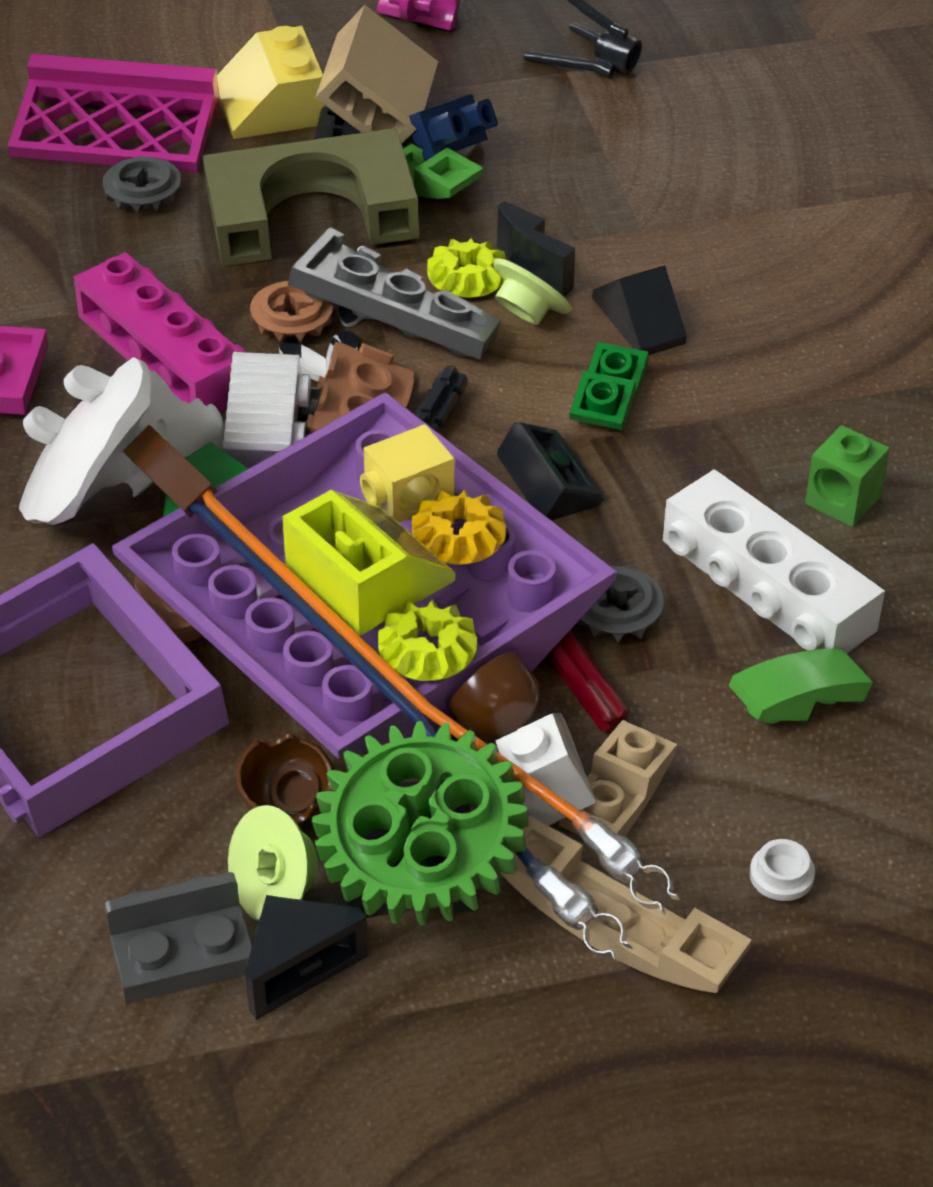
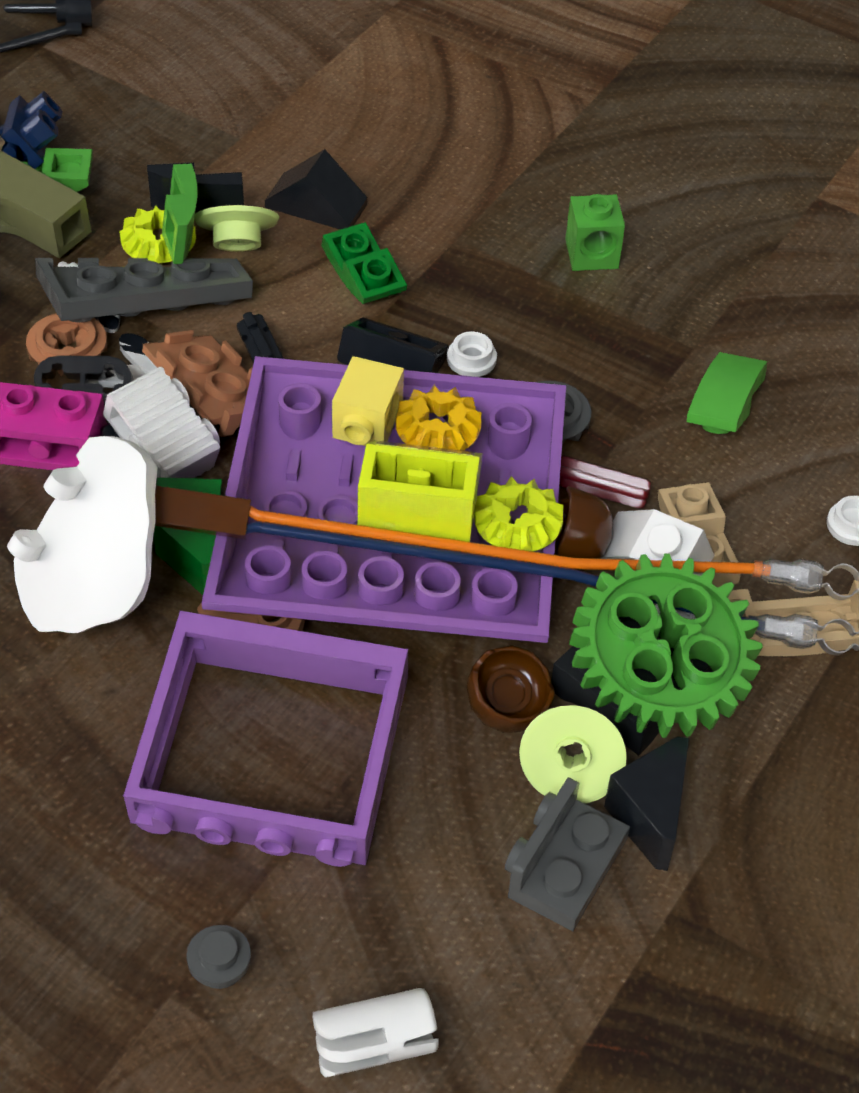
camera: 45 degrees left, 5 degrees up
(269, 334) = (83, 369): none -> black beam
(474, 252) = (180, 212): none -> bright green slope
(607, 513) = (472, 354): none -> white plate
(772, 565) = (619, 323): white brick -> none

